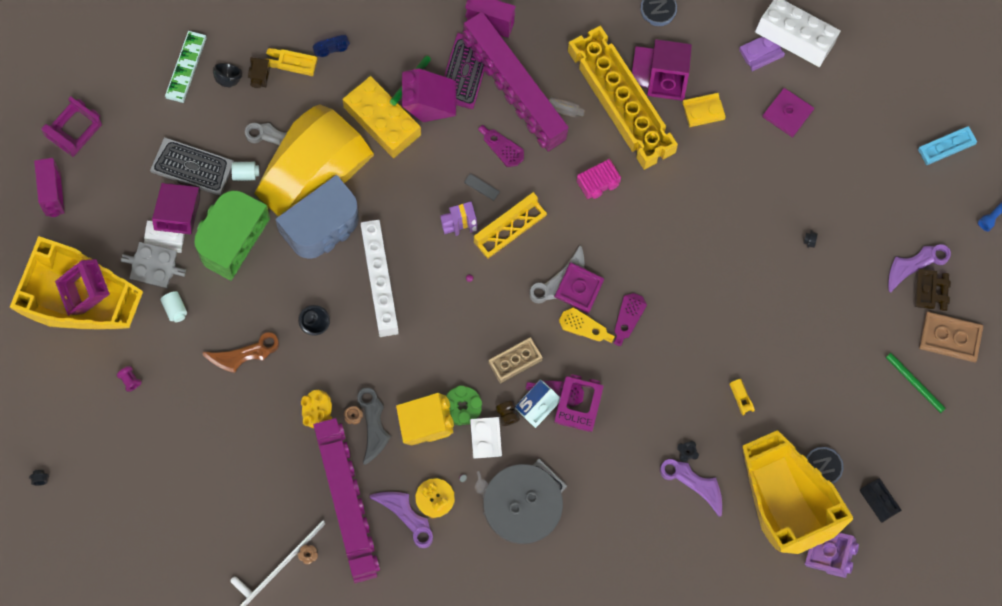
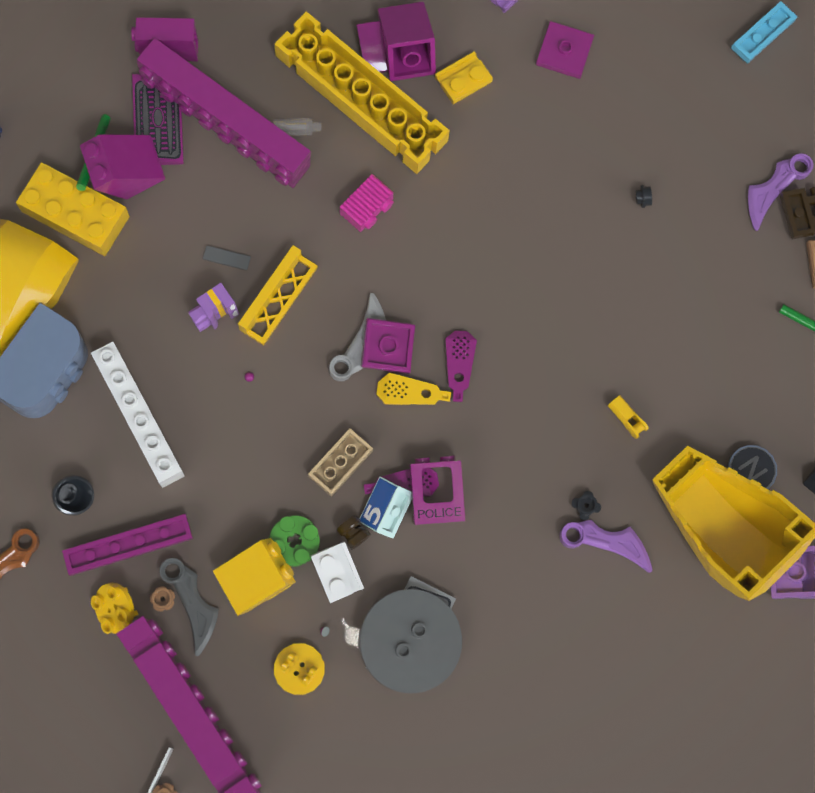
camera: 25 degrees left, 5 degrees up
(341, 368) = (127, 544): none -> magenta plate
(399, 504) = (258, 692): medium lavender piece -> none
(499, 147) = (233, 197): magenta piece -> none

